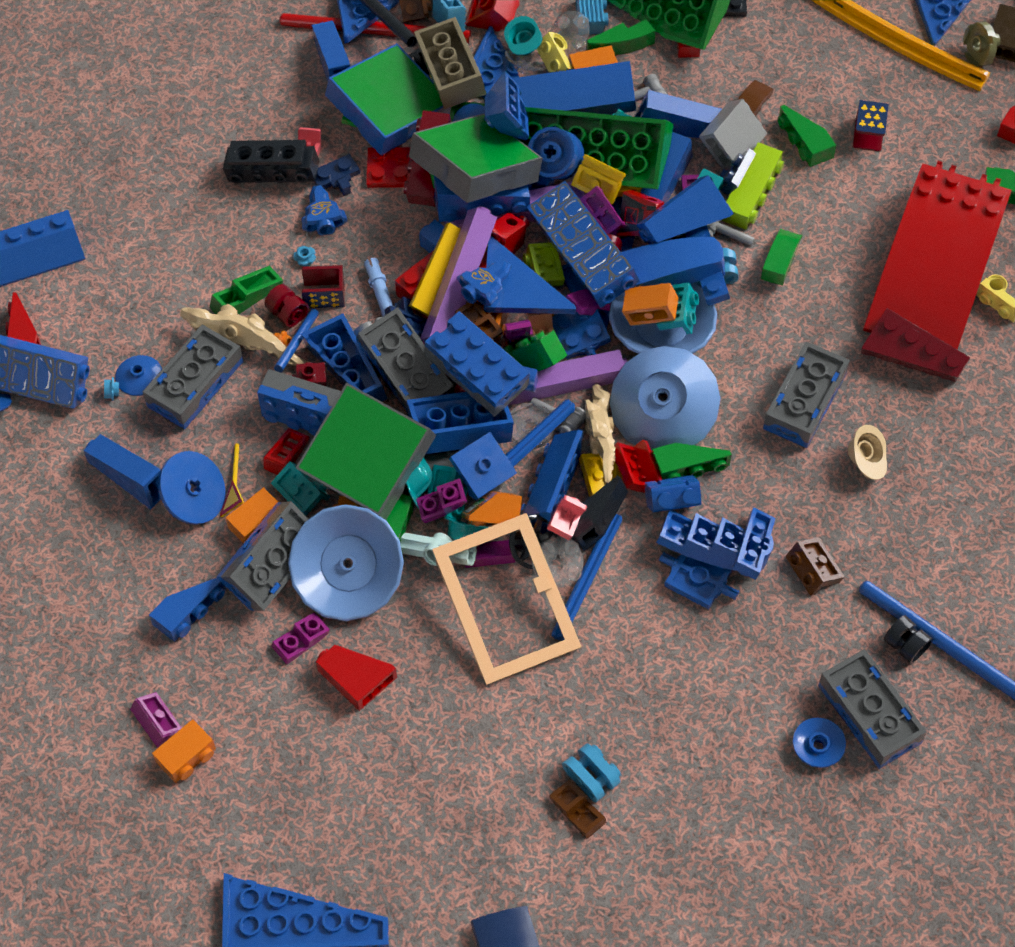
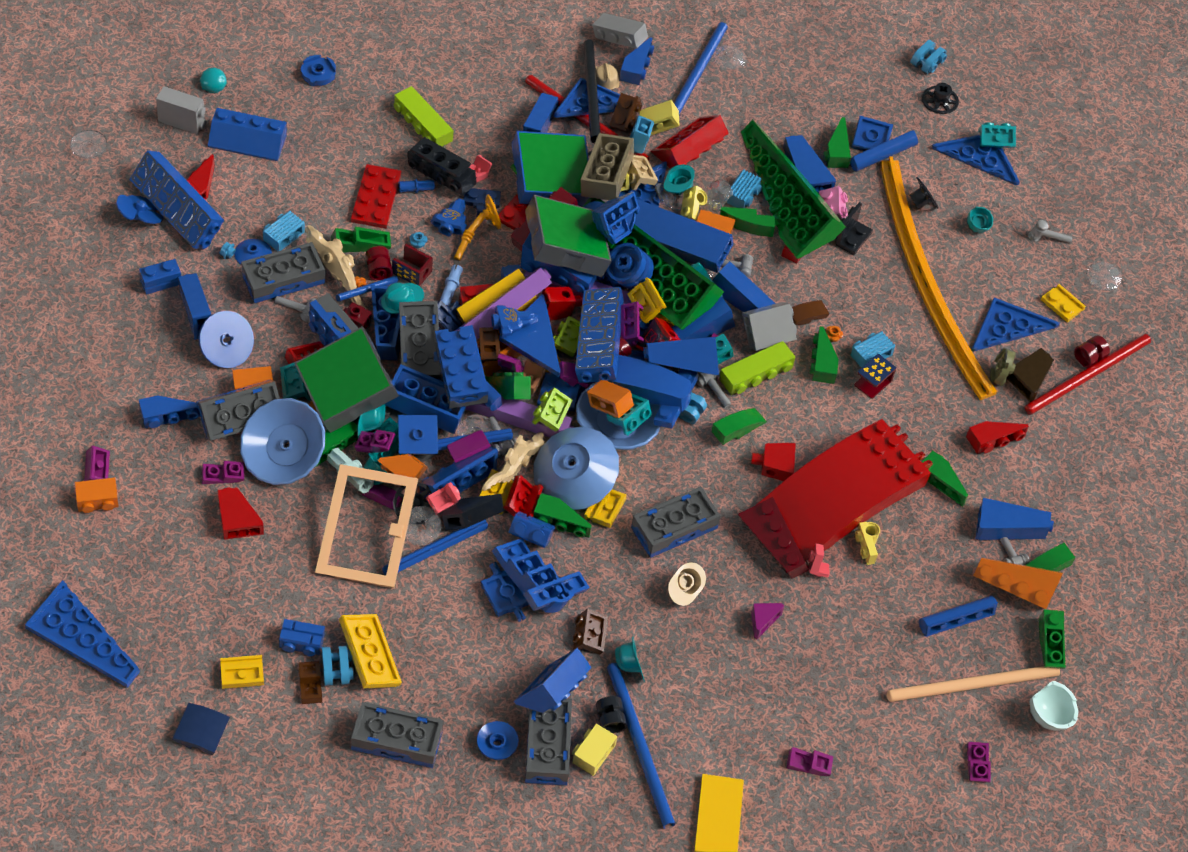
camera: 25 degrees right, 5 degrees down
(57, 145) = (318, 78): none -> blue plate
(60, 462) = (159, 276): none -> blue brick
(155, 331) = (283, 231): none -> dark azure brick
(205, 121) = (422, 116): none -> lime brick
(222, 235) = (376, 196): none -> red plate
(233, 497) = (250, 361): yellow piece -> none
(249, 401) = (297, 306): none -> light grey piece
(256, 199) = (415, 186): none -> blue axle
(345, 326) = (400, 293): none -> teal piece
(361, 182) = (488, 213): none -> light orange dish
(482, 51) = (641, 172): none -> tan bracket
(498, 846) = (242, 671): none -> yellow plate
(532, 765) = (301, 637): none -> blue brick
(542, 445) = (468, 446): none -> magenta slope
(595, 352) = (552, 409): none -> lime bracket
(614, 733) = (370, 651): none -> yellow tile
(718, 805) = (397, 734): none -> dark grey piece
(727, 428) = (607, 509): none -> yellow plate
(734, 176) = (744, 352): hinge -> none
(799, 104) = (834, 337): none -> orange plate
(834, 643) = (555, 683): none -> blue slope
(844, 101) = (874, 344): none -> dark azure brick
(849, 269) = (776, 460): none -> red torso
(878, 568) = (627, 658): none -> teal piece
(920, 686) = (594, 749): none -> light yellow brick
(966, 439) = (764, 616): none -> magenta slope
(972, 346) = (816, 565): none -> coral bracket

